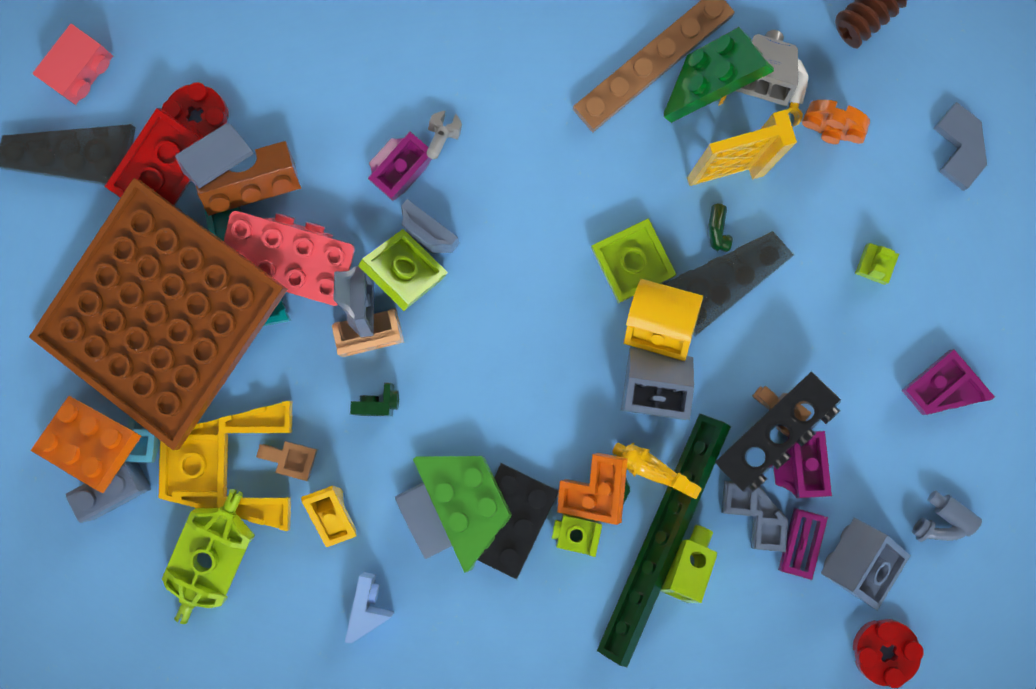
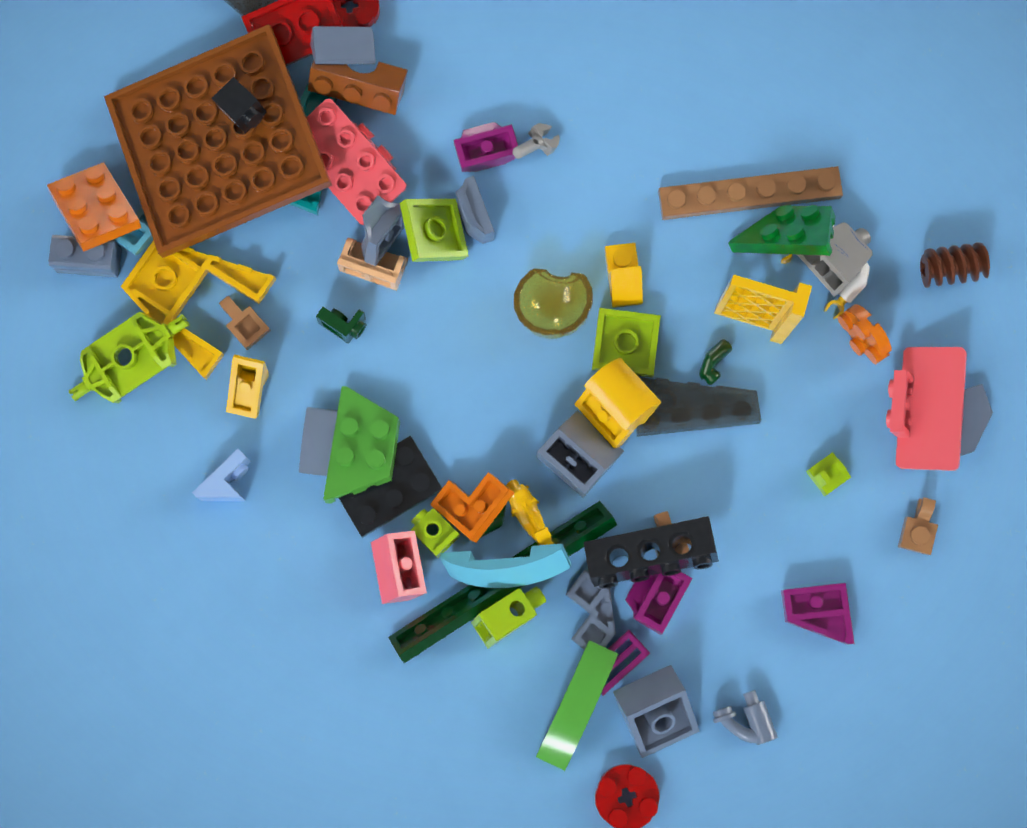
camera: 30 degrees right, 5 degrees down
(156, 270) = (239, 105): none -> black brick
(551, 268) = (553, 304): none -> clear yellow cylinder
(568, 587) = (398, 567): none -> coral brick
(592, 202) = (624, 275): none -> yellow slope
(695, 506) = (542, 564): none -> medium azure slope
(798, 602) = (577, 705): none -> bright green slope
(928, 151) = (928, 408): none -> coral bracket
(984, 264) = (918, 532): none -> medium nougat plate

